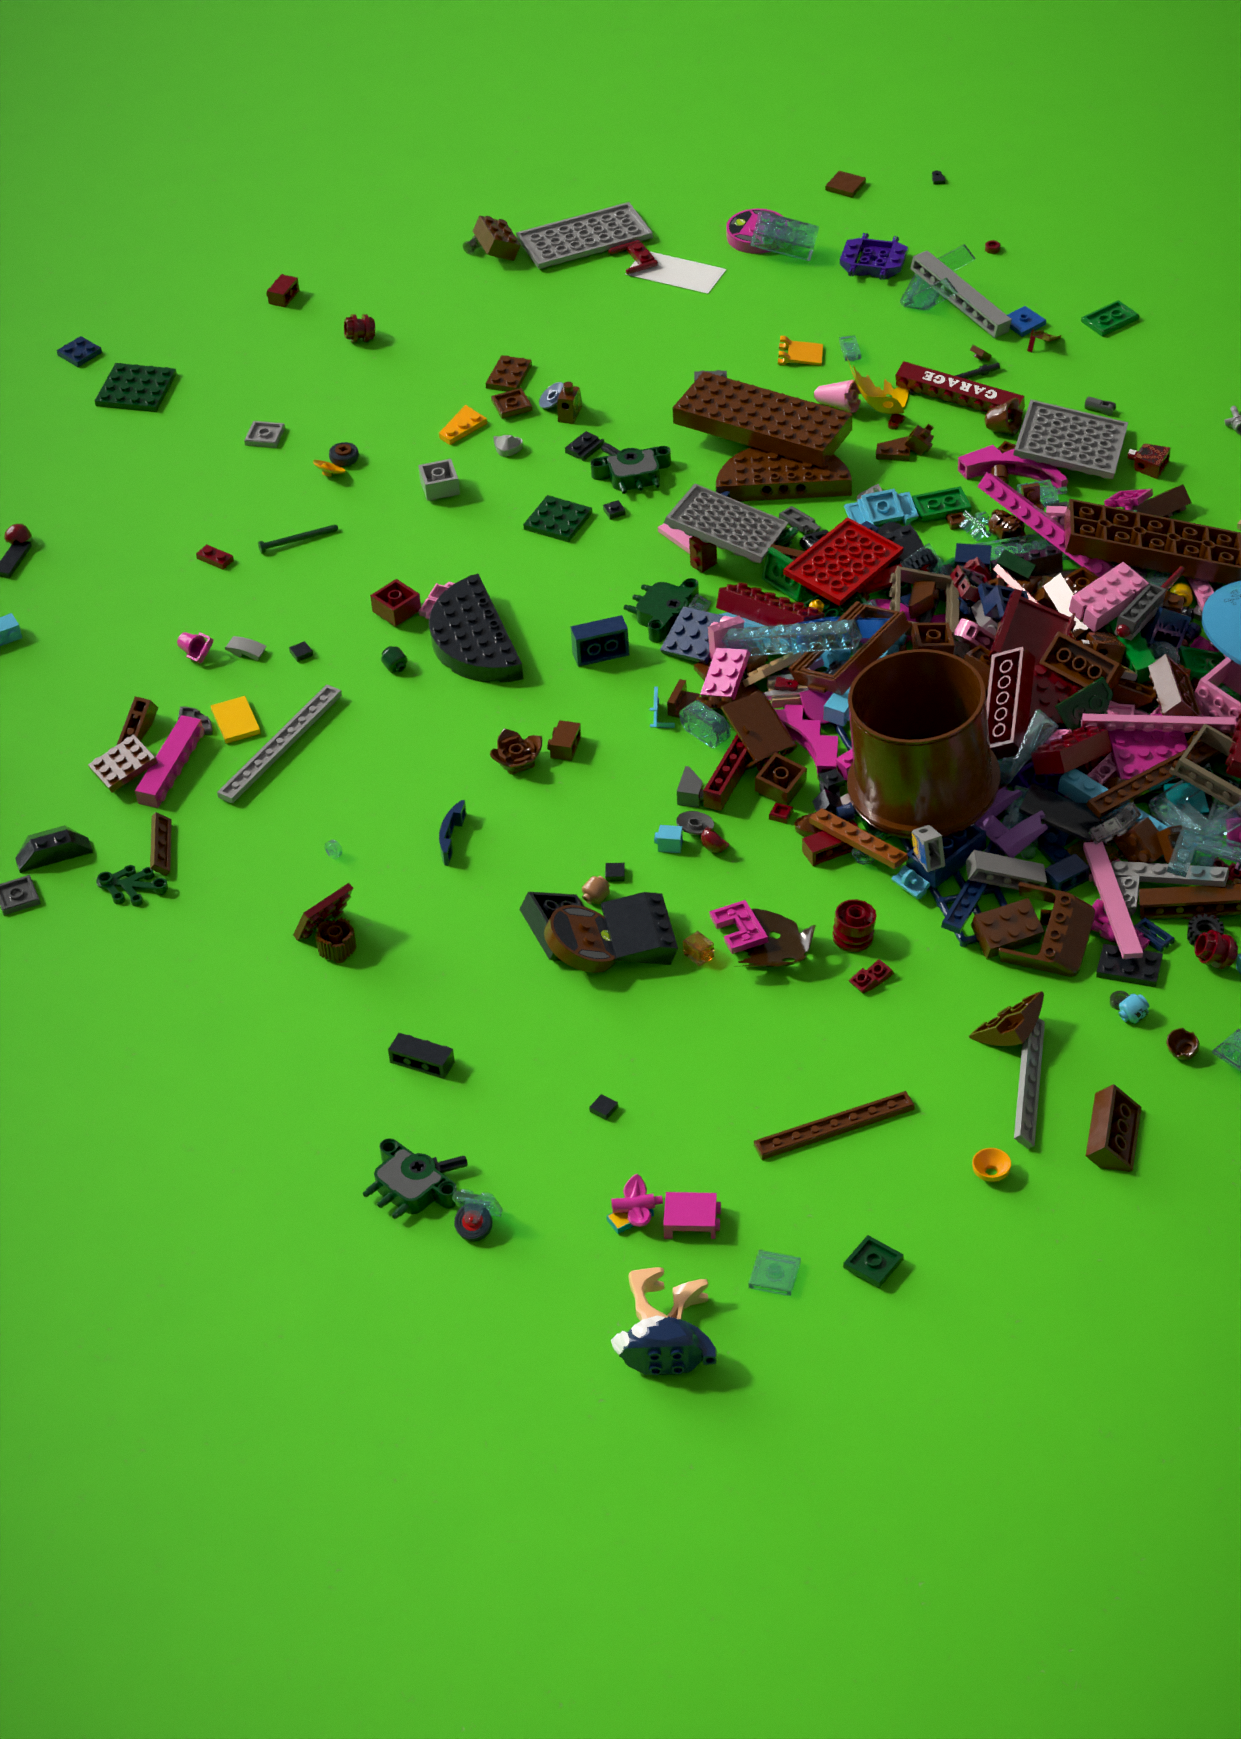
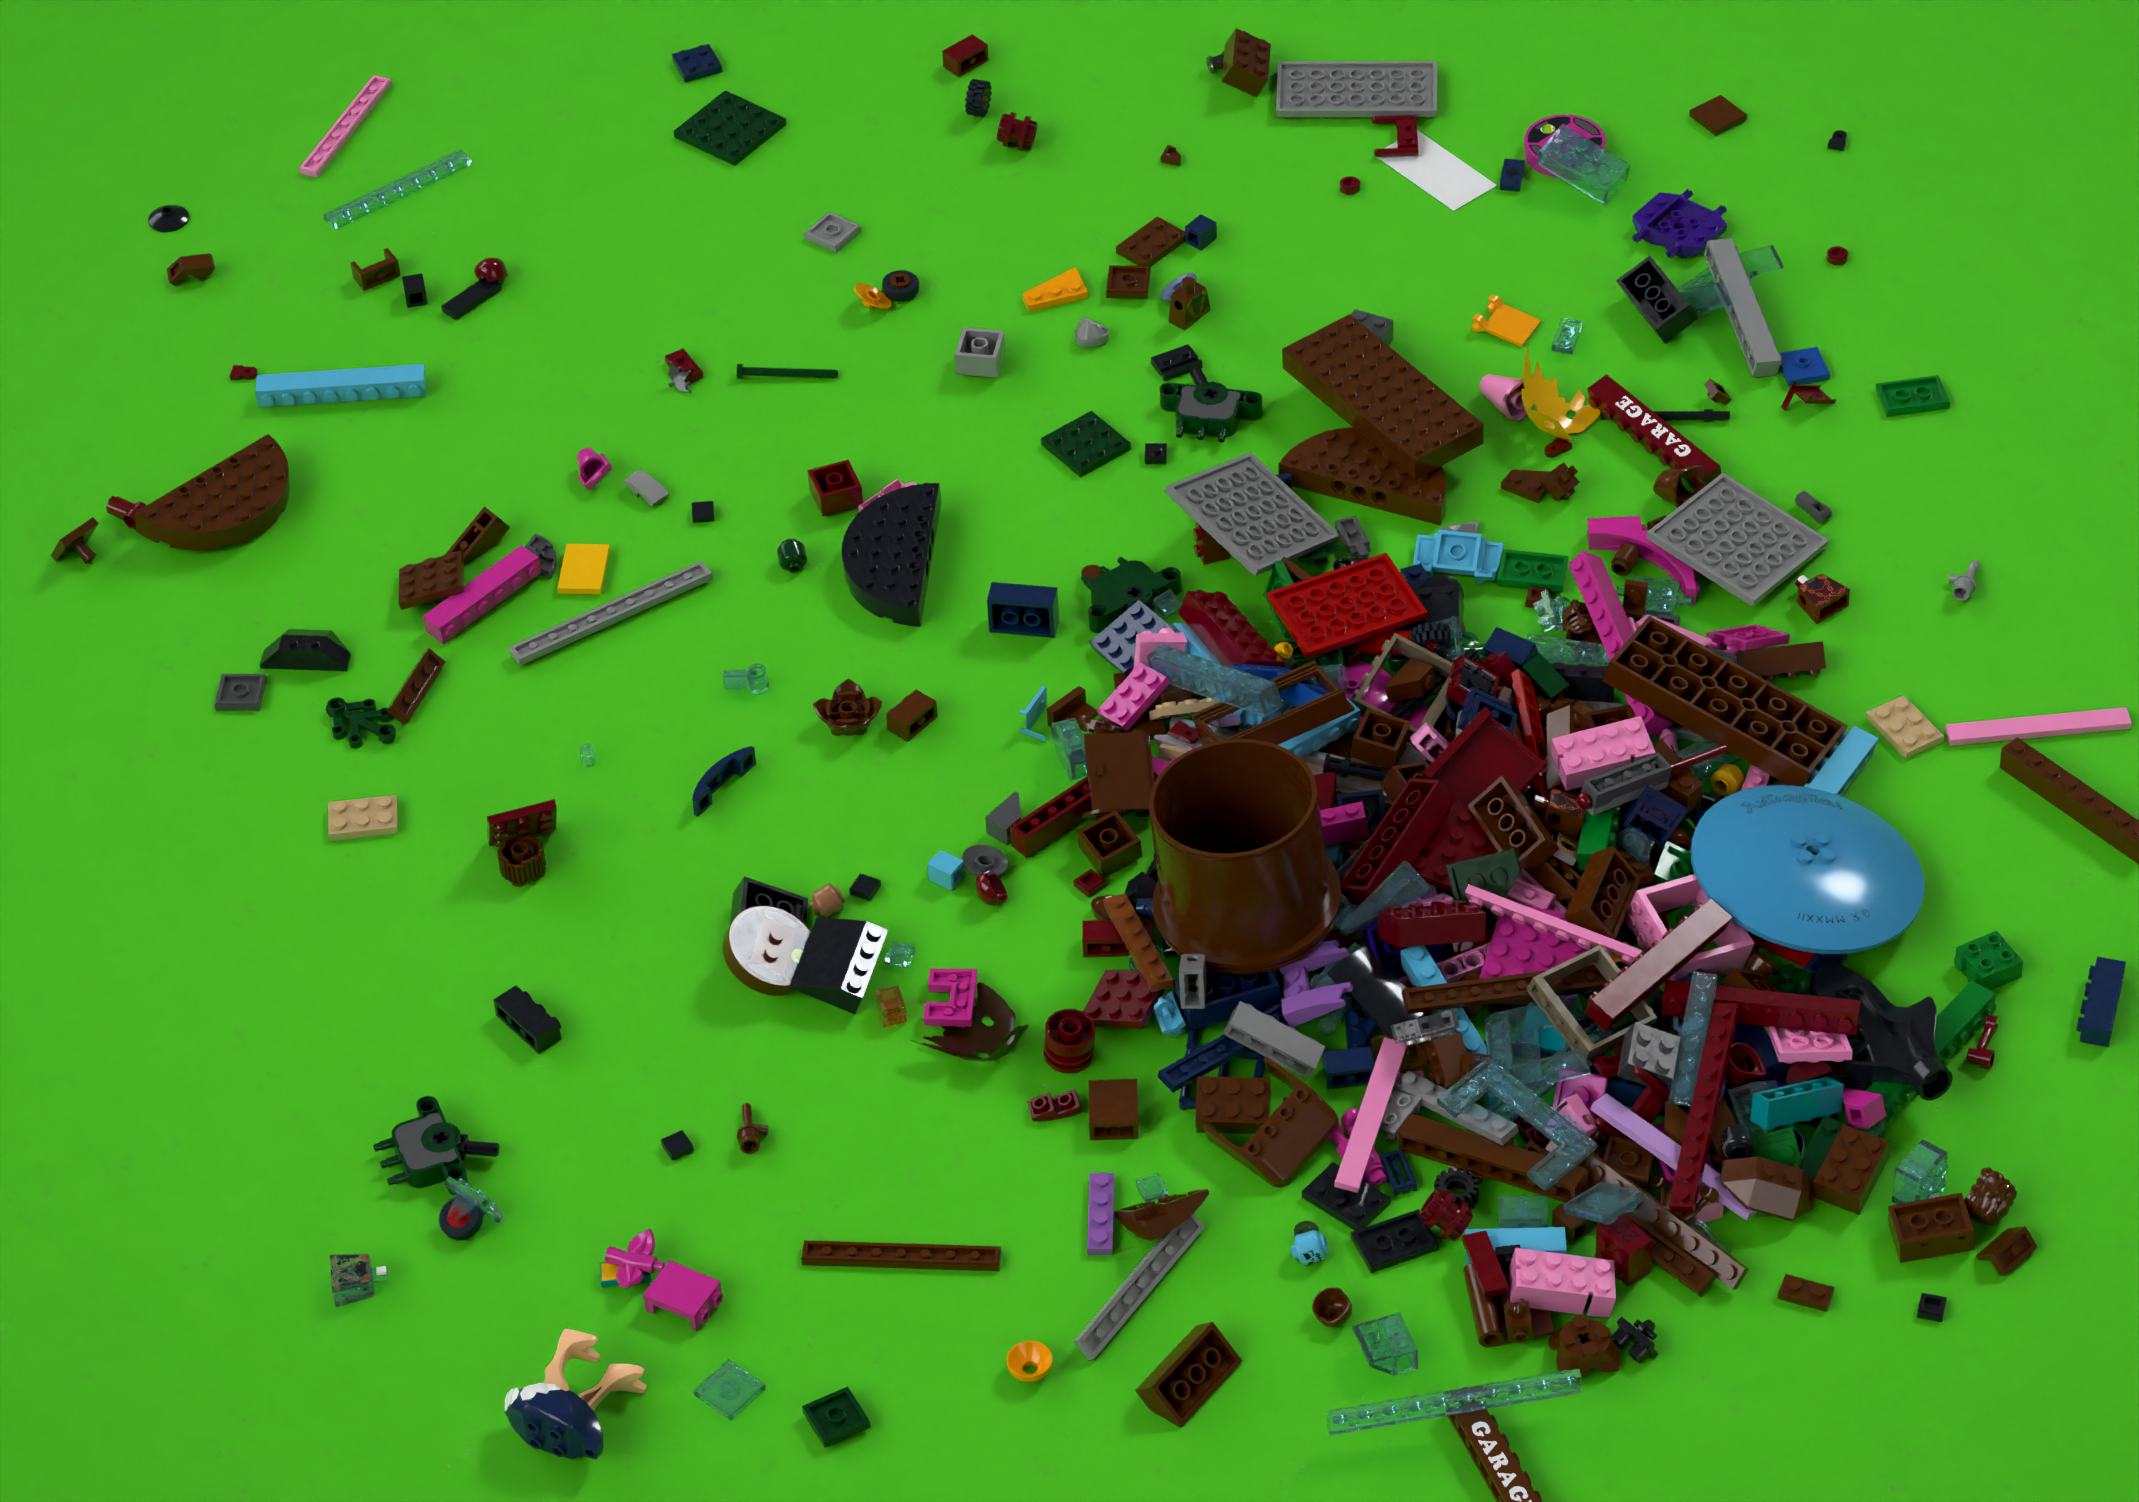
camera: 25 degrees right, 0 degrees up
(181, 953) = (363, 817): none -> tan plate
(218, 565) = (679, 378): none -> dark grey piece
(315, 314) = (978, 97): none -> black wheel
(416, 1299) = (354, 1277): none -> clear light blue torso
(425, 754) = (753, 678): none -> clear light blue piece
(481, 315) = (1171, 156): none -> reddish brown tile
(541, 356) = (1200, 232): none -> dark blue brick
(623, 297) = (1349, 185): none -> dark red tile
(627, 600) = (1091, 571): none -> reddish brown tile
(656, 1078) = (750, 1133): none -> reddish brown piece
(676, 910) = (900, 954): none -> clear light blue plate
(733, 259) = (1512, 175): none -> dark blue tile
(870, 882) = (1122, 1000): none -> dark red plate
(899, 305) = (1657, 299): none -> brick
(918, 963) = (1113, 1109): none -> reddish brown brick
(961, 1040) = (1101, 1214): none -> medium lavender plate
(984, 1008) = (1151, 1187): none -> clear light blue tile
(1186, 983) = (1394, 1241): none -> black tile

